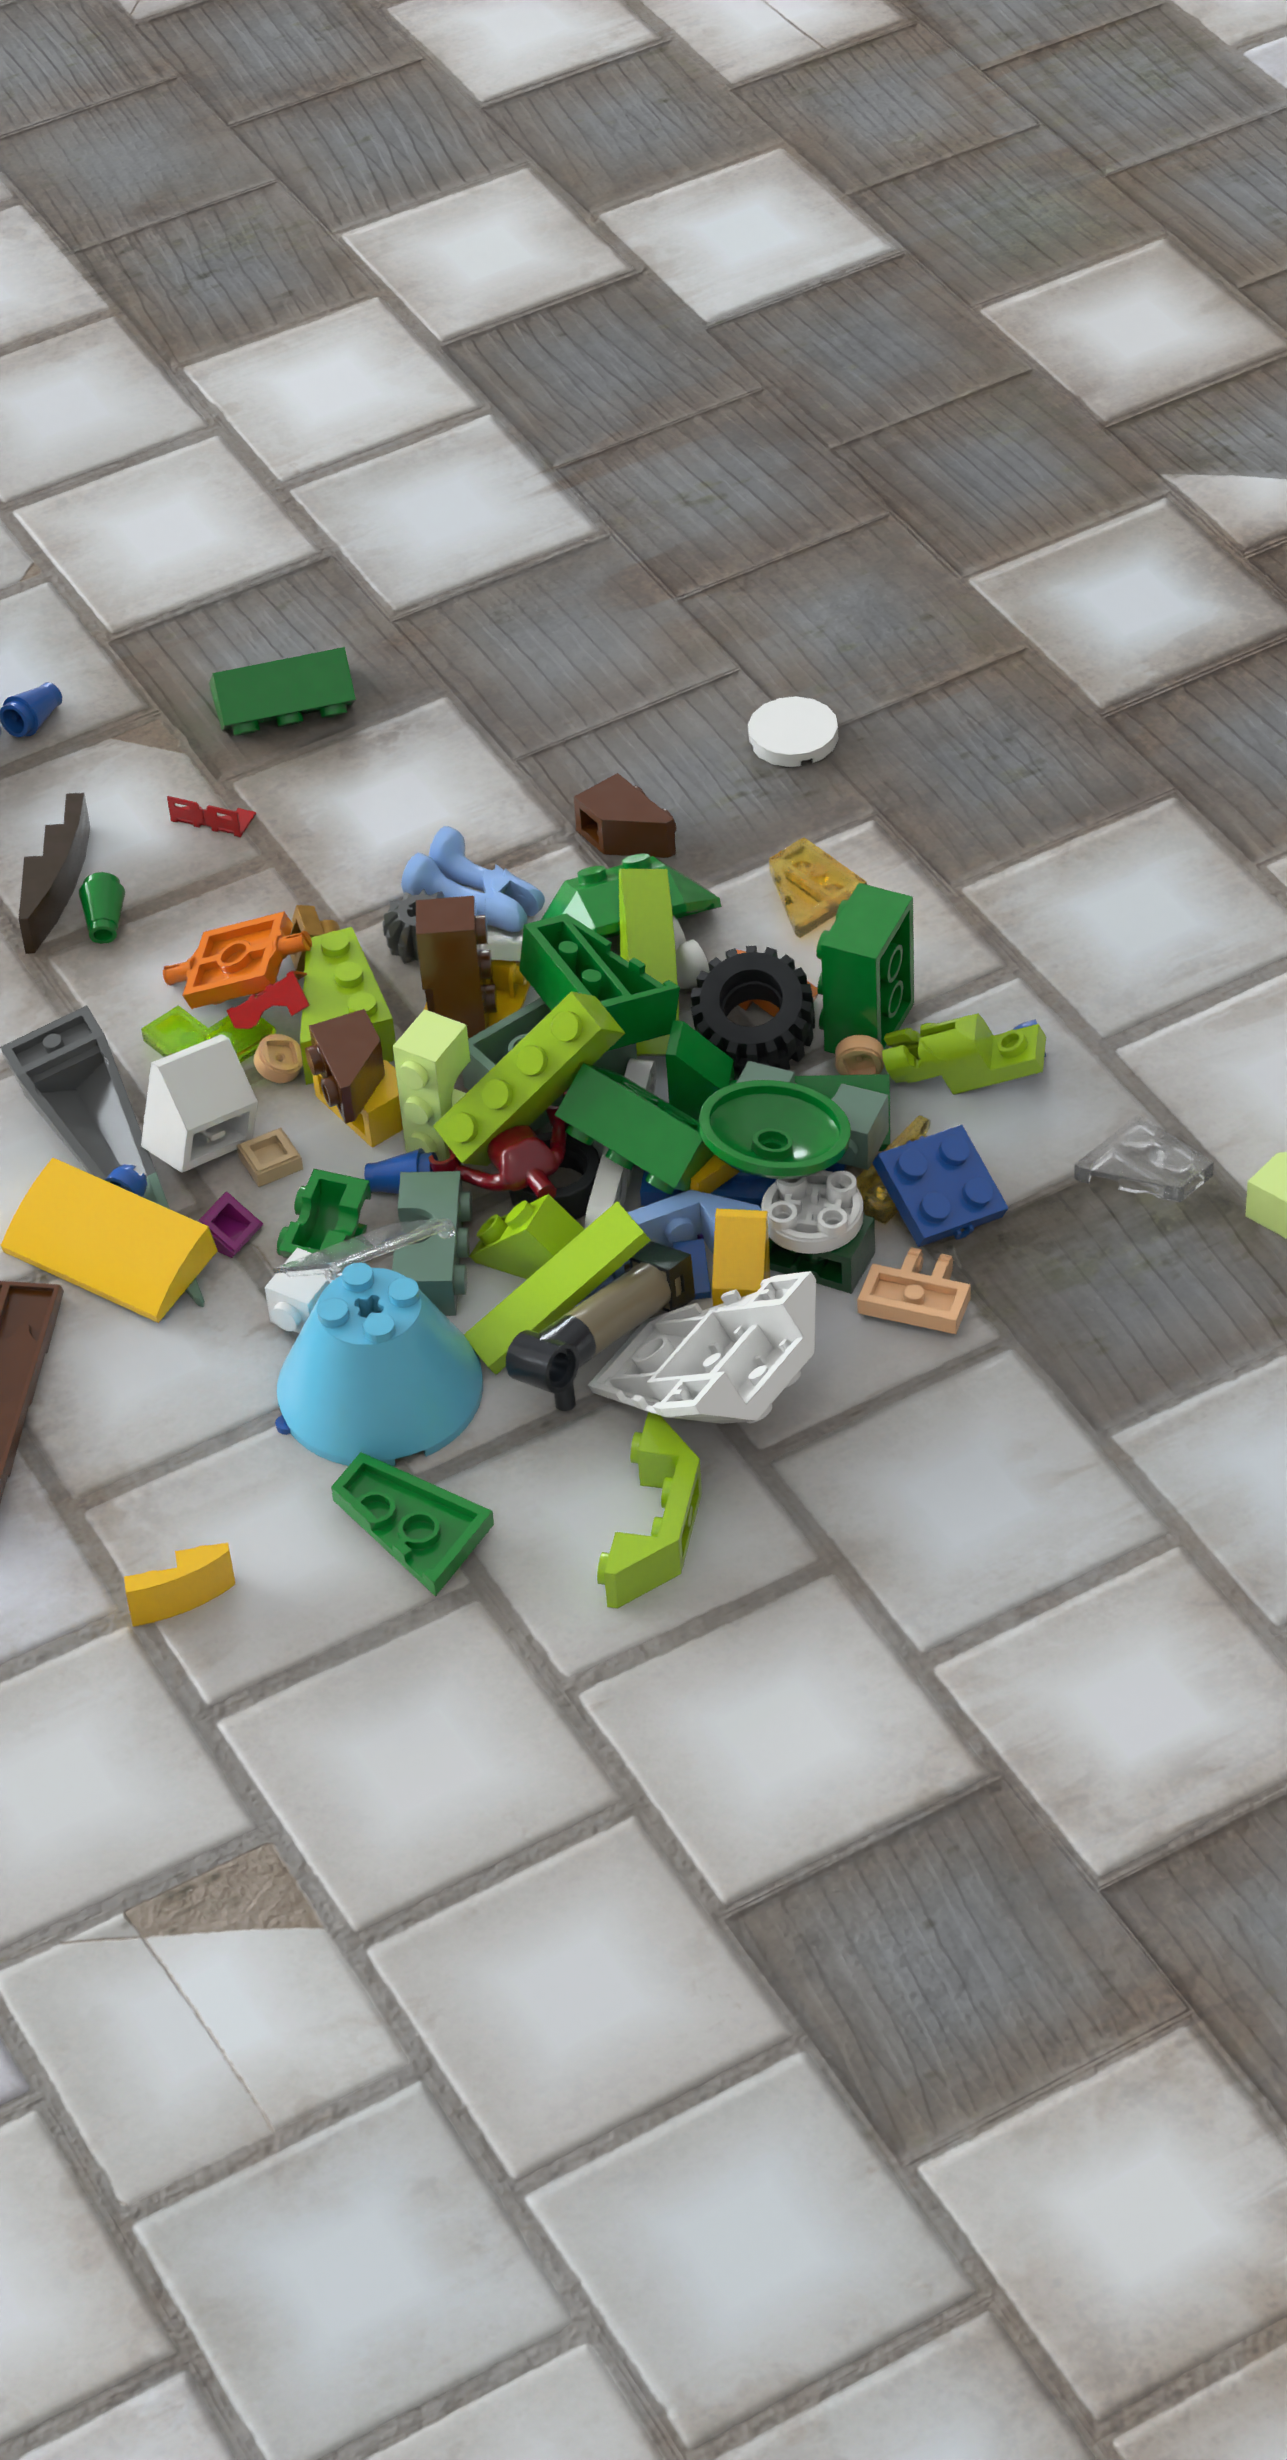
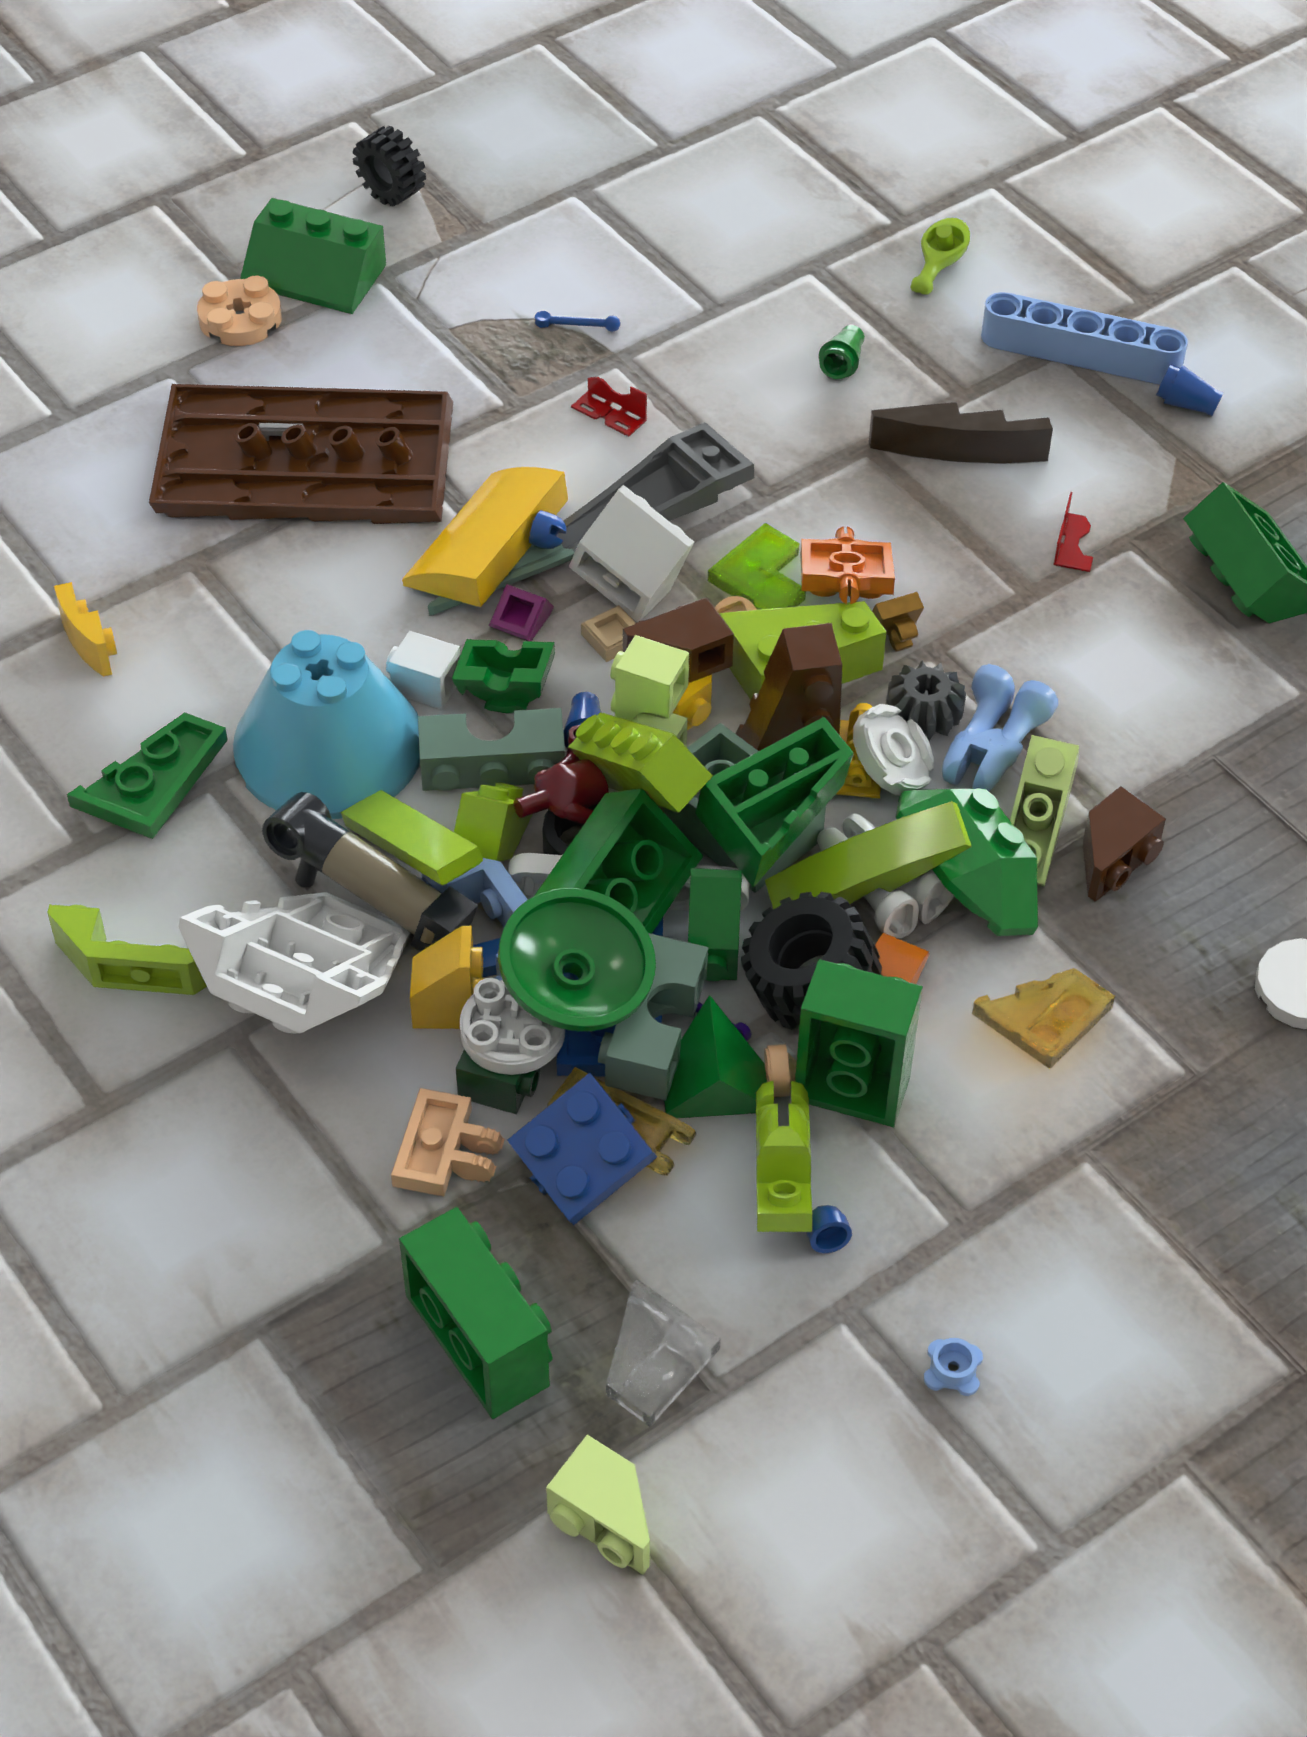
camera: 80 degrees right, 5 degrees up
(102, 905) = (921, 474): green cone -> none
(282, 993) = (776, 585): red piece -> none
(366, 1247) = (437, 681): clear piece -> none
(553, 851) = (1044, 797): none -> yellowish green slope
(1122, 1249) = (476, 1311): none -> green brick
(1169, 977) = (955, 1352): none -> light blue plate

